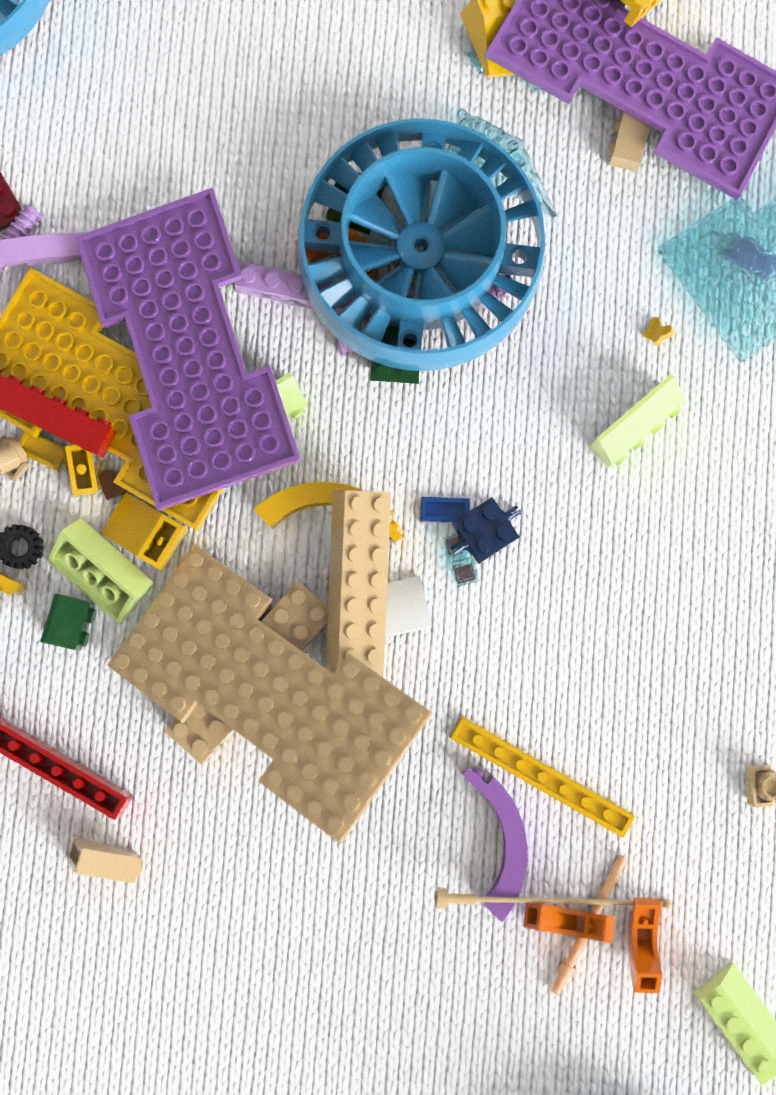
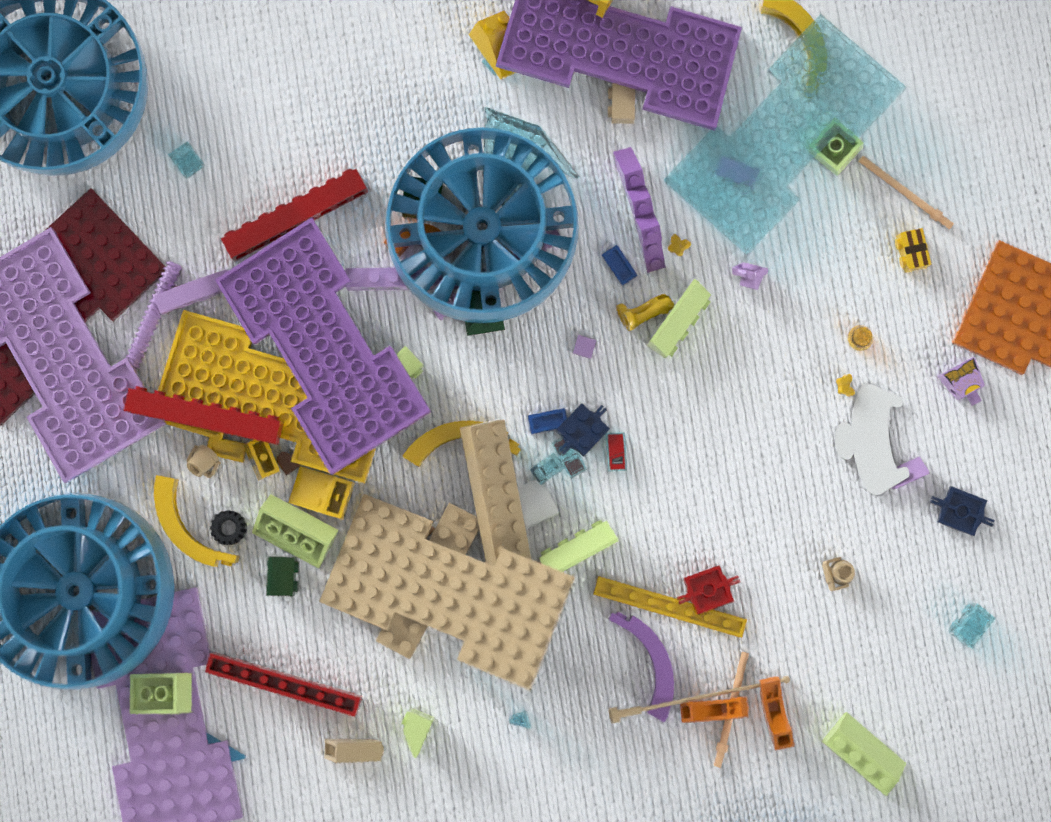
camera: 15 degrees left, 0 degrees up
(79, 87) = (186, 160): none -> clear light blue piece
(188, 853) = (416, 729): none -> yellowish green slope
(226, 175) = (287, 217): none -> red brick
(321, 874) = (520, 719): none -> clear light blue slope
(430, 568) = (547, 468): none -> clear light blue brick
(448, 676) = (580, 548): none -> yellowish green slope
(511, 429) = (584, 346): none -> lavender tile
(520, 567) = (616, 452): none -> red slope
(578, 339) = (619, 265): none -> blue tile
(595, 767) = (708, 590): none -> red plate
(609, 400) = (634, 317): none -> yellow piece
(625, 263) = (641, 207): none -> medium lavender arch
(739, 388) = (750, 274): none -> lavender piece

